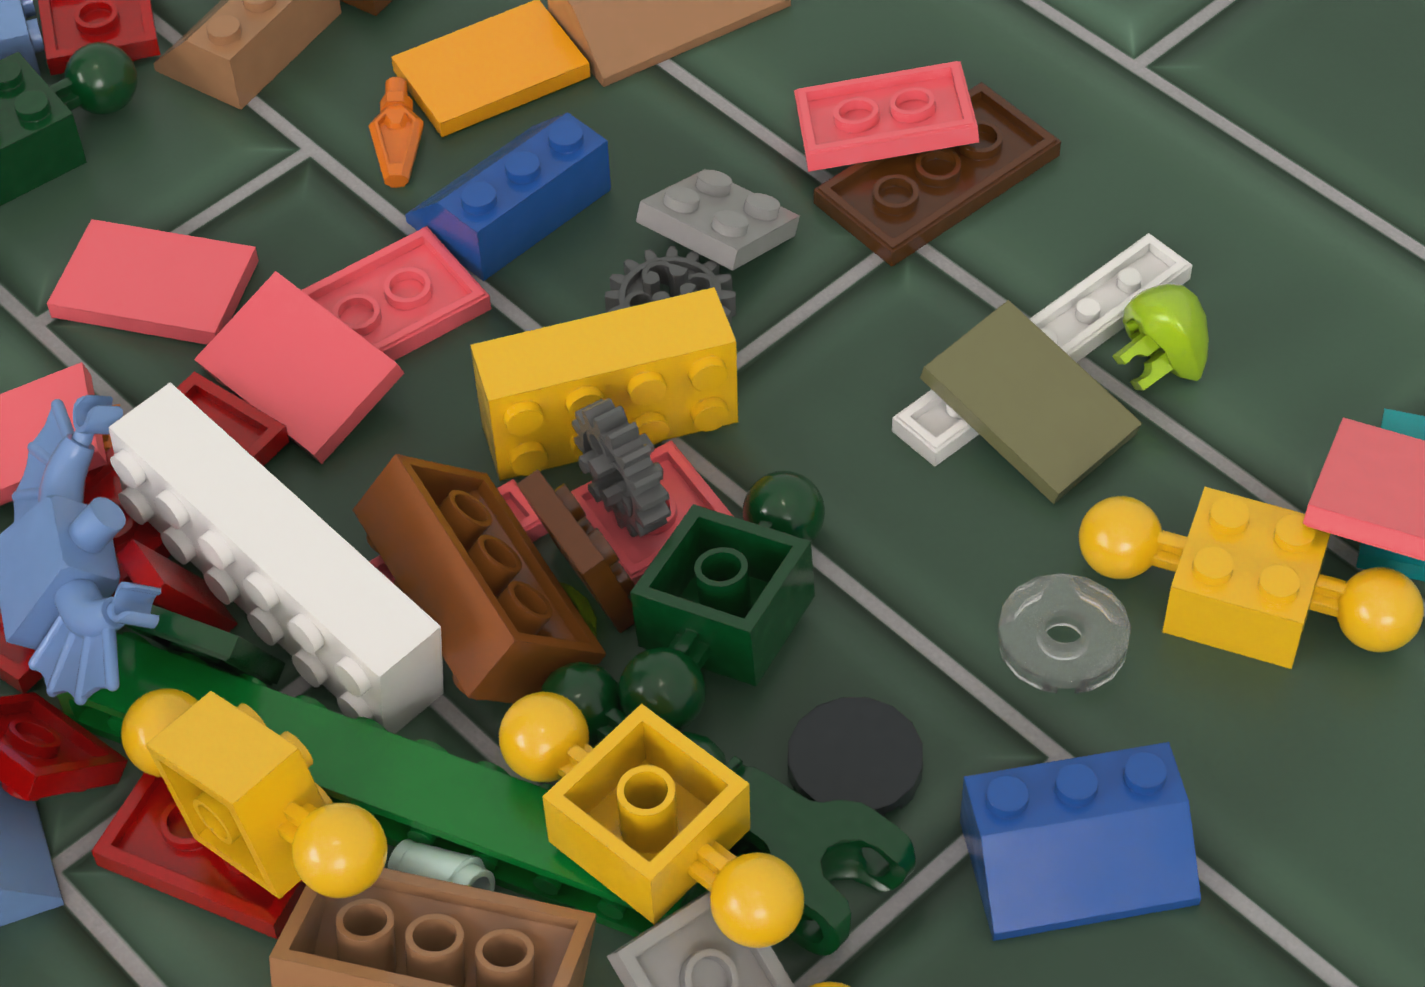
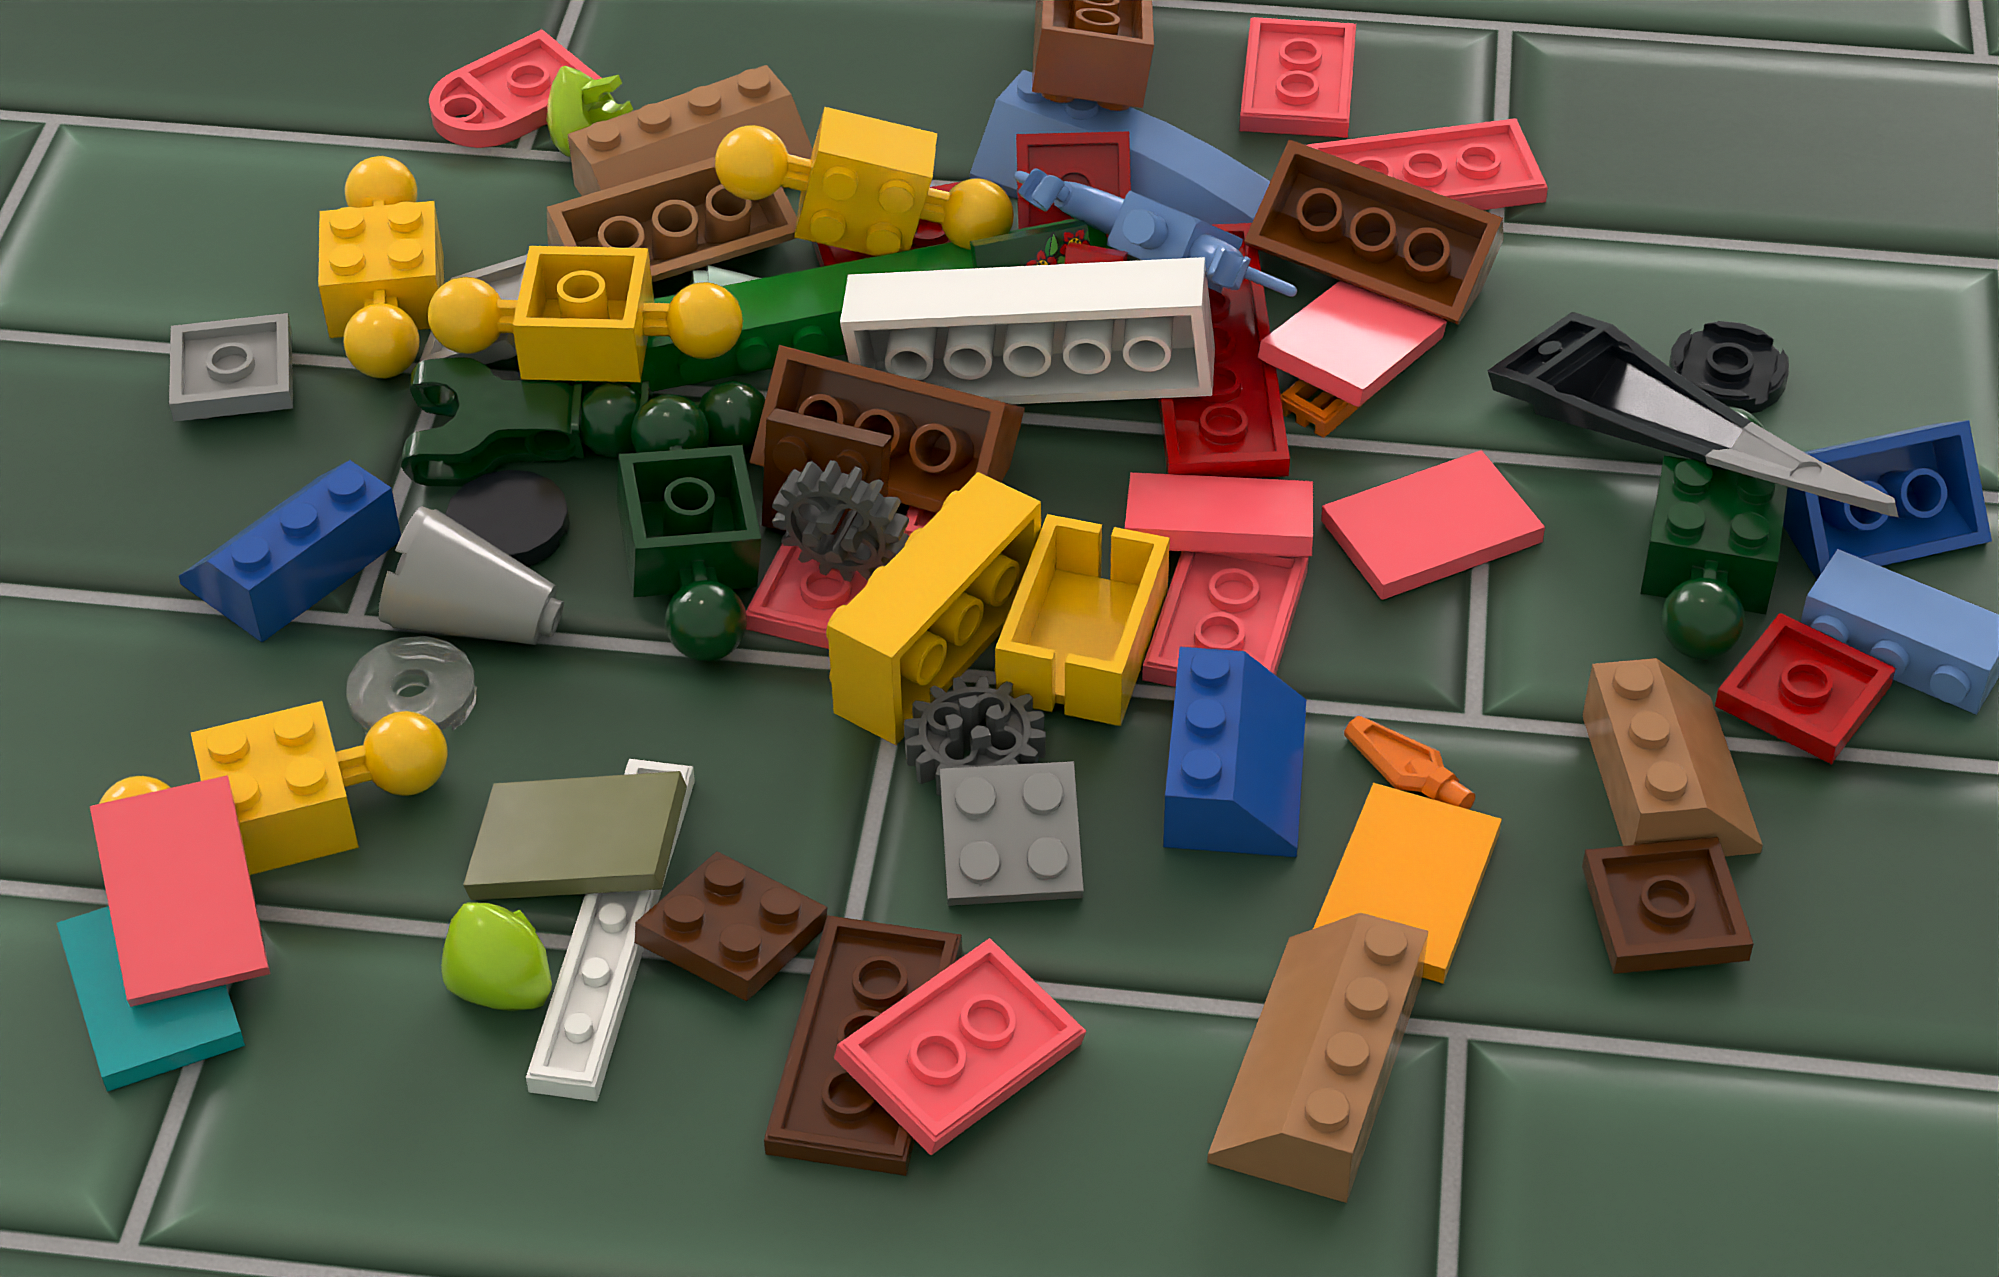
camera: 140 degrees right, 5 degrees down
(498, 294) = (1082, 634): none -> yellow piece
(964, 278) = (731, 925): none -> reddish brown plate
(968, 668) = (465, 586): none -> light grey cone

